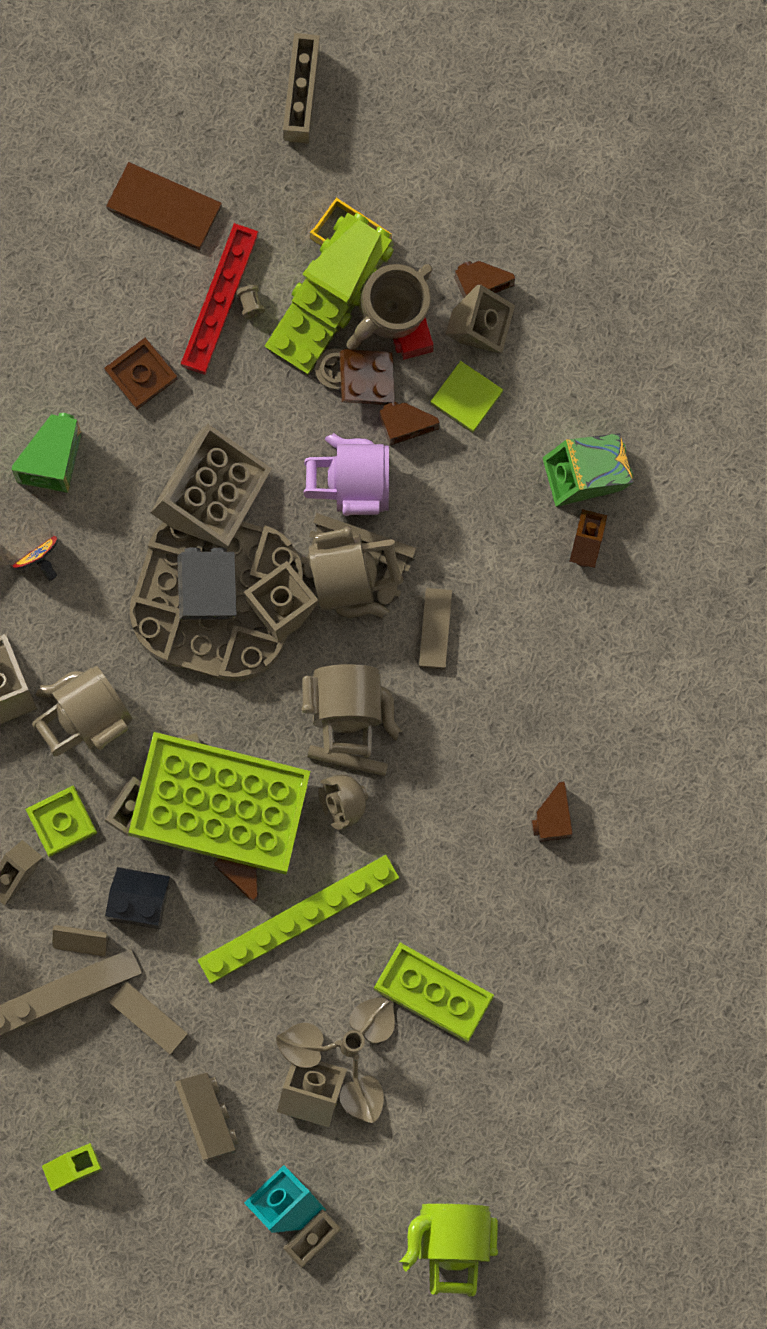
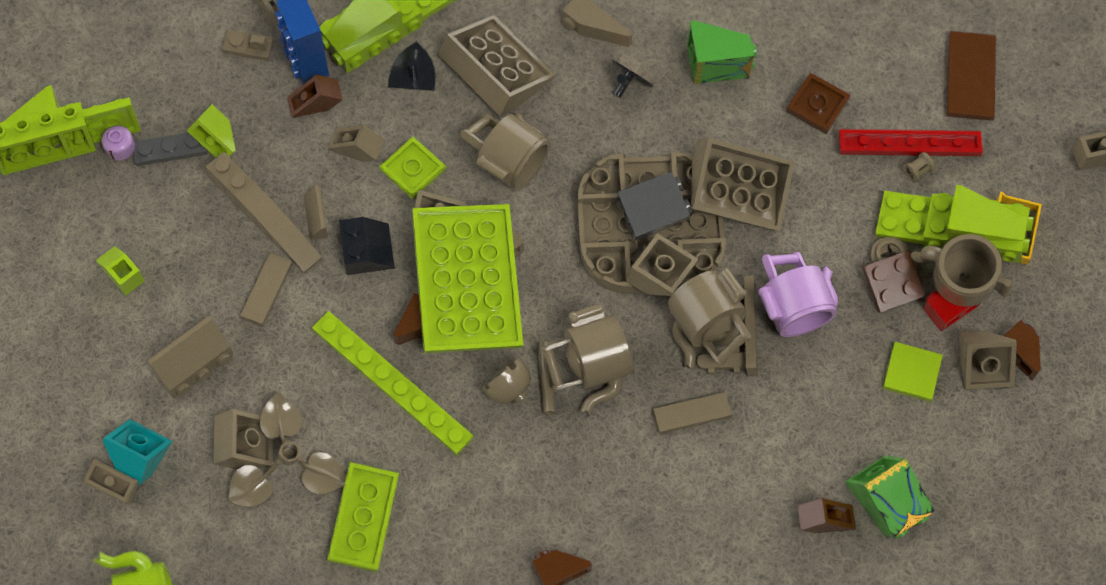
camera: 70 degrees right, 10 degrees down
(406, 422) = (866, 326): reddish brown slope -> none

